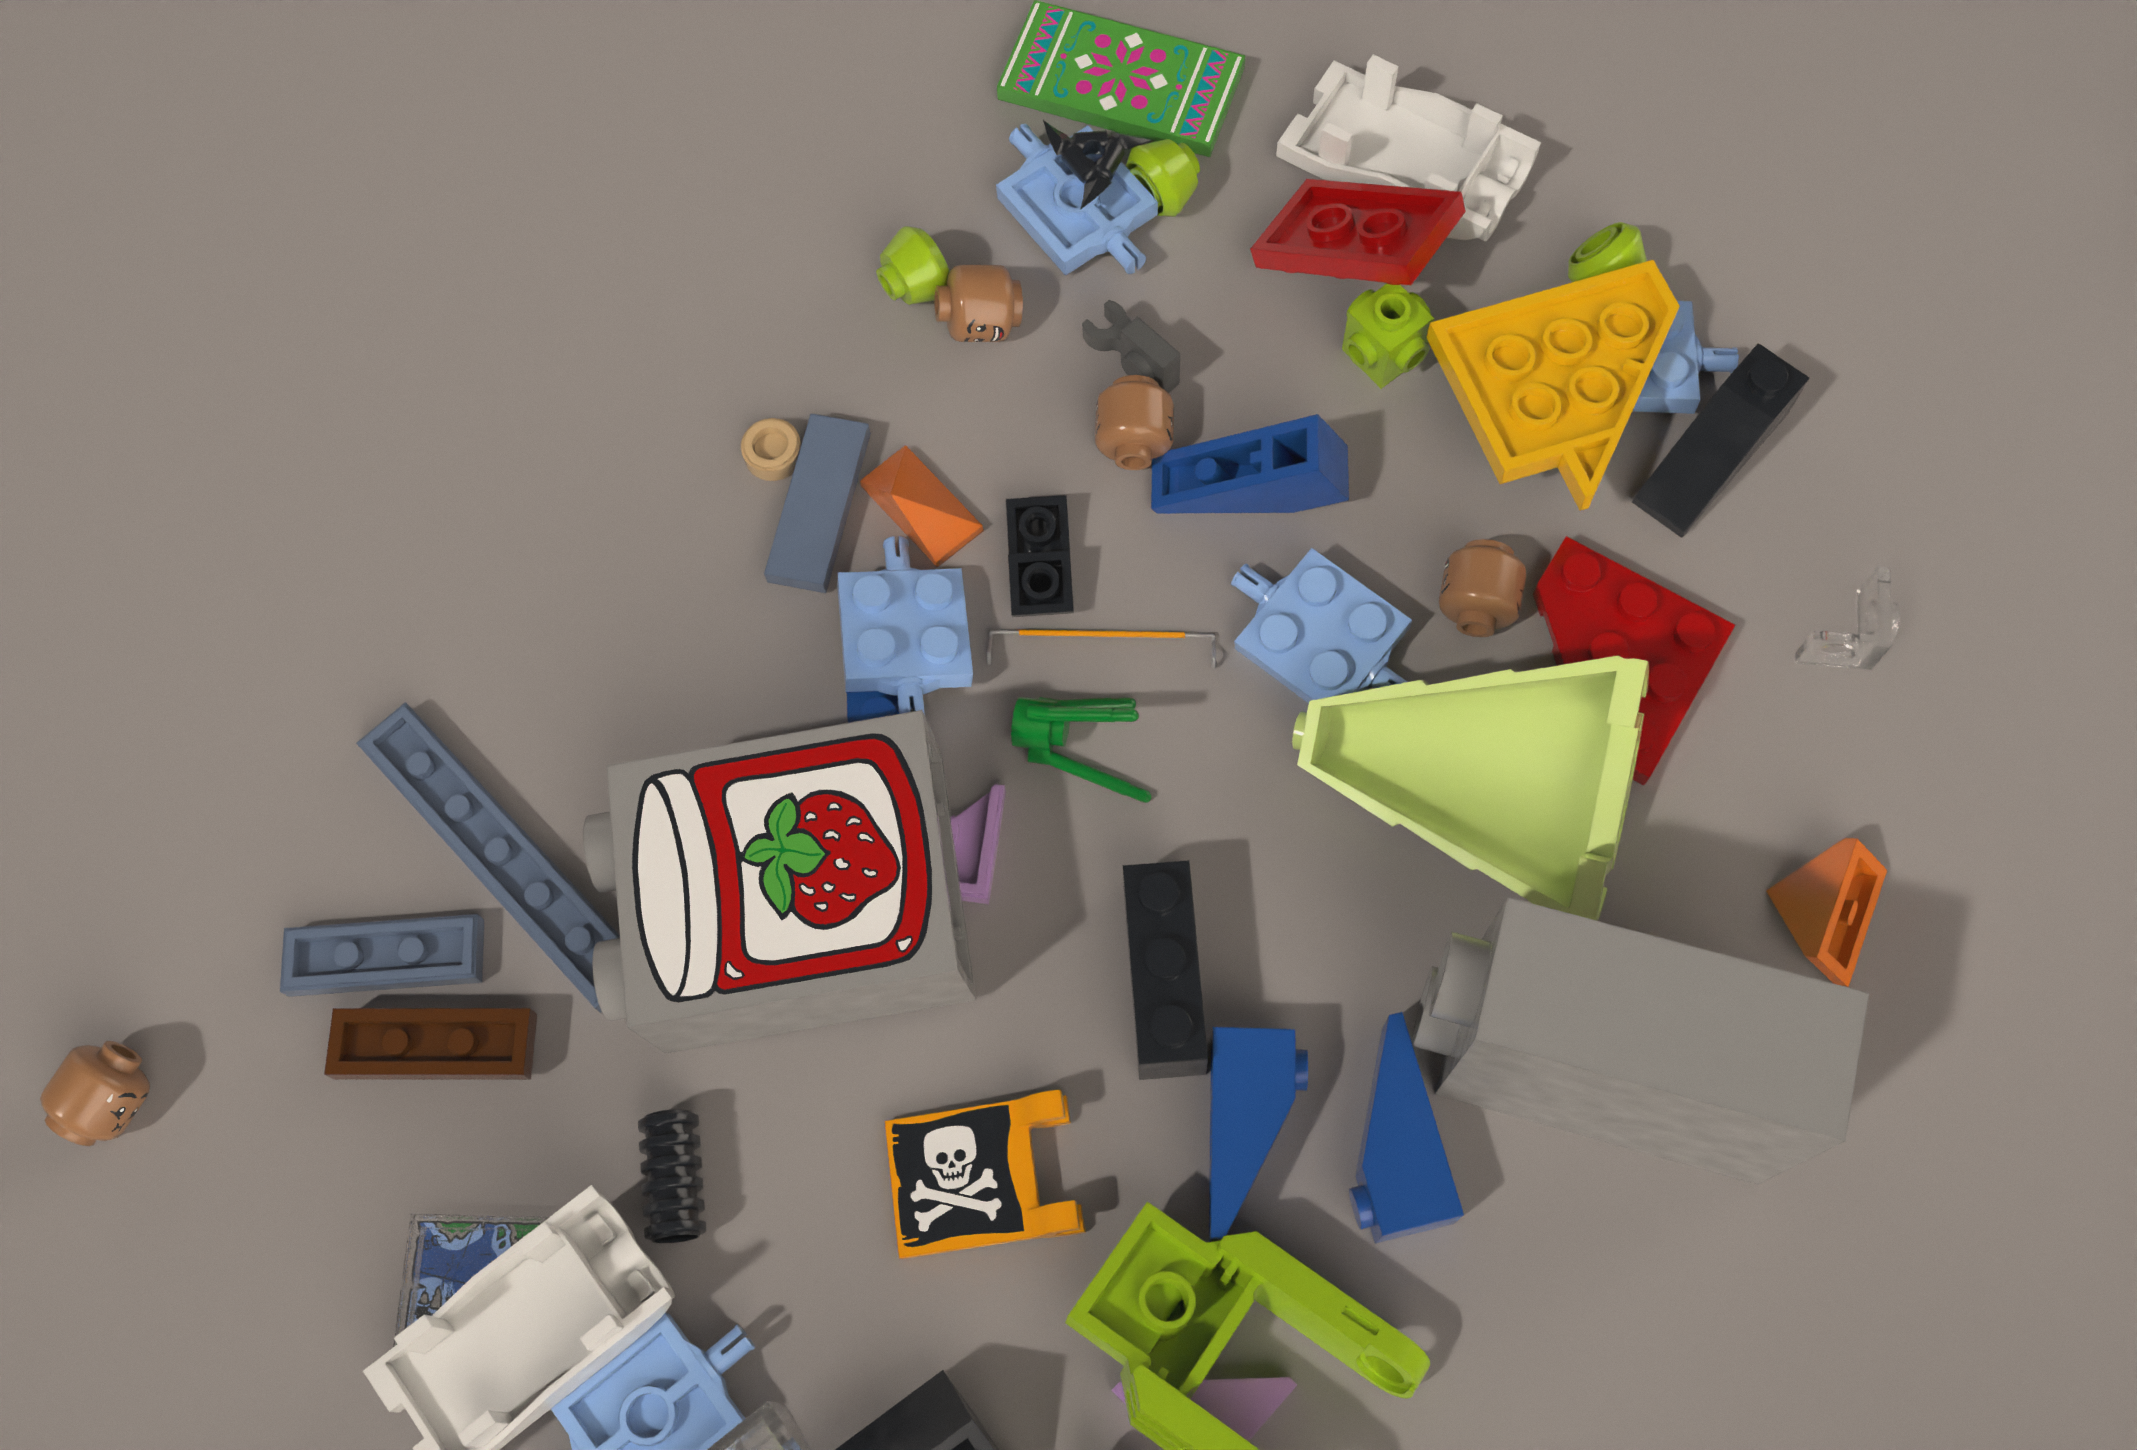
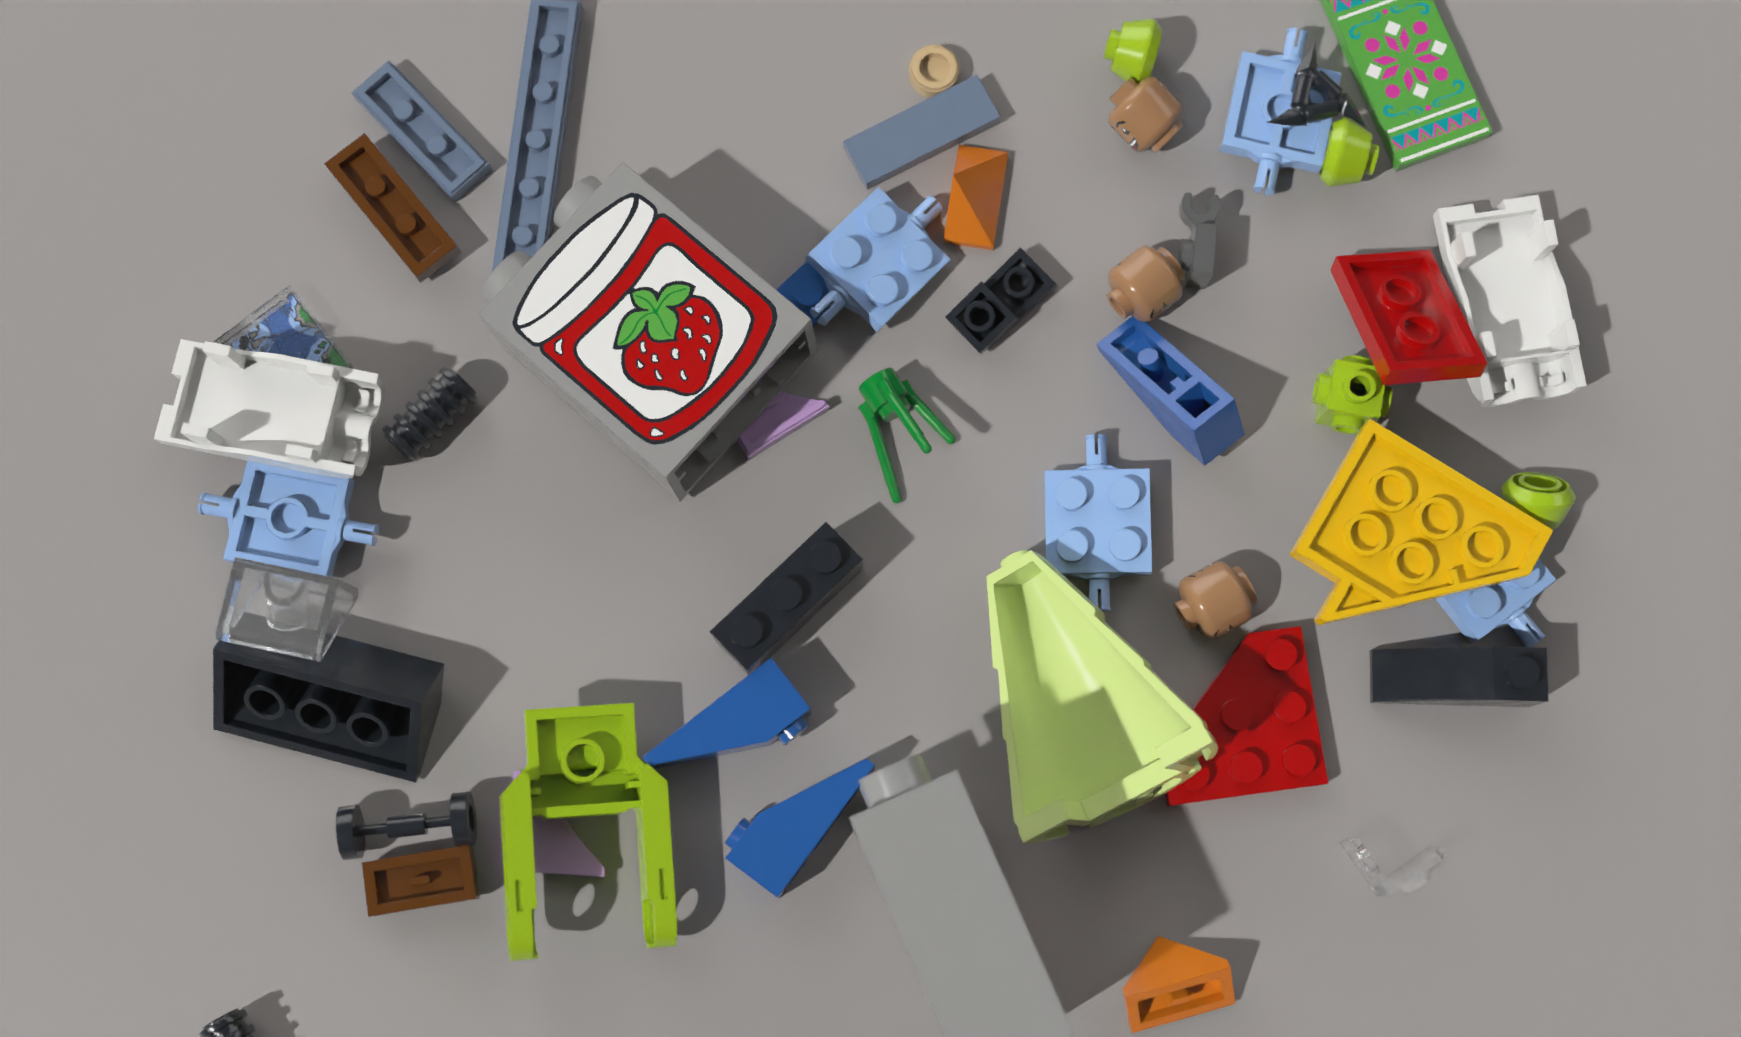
camera: 45 degrees right, 10 degrees up
(95, 1093) = (209, 45): medium nougat head -> none
(973, 1178) = (573, 588): flag -> none
(1093, 633) = (983, 383): light orange piece -> none

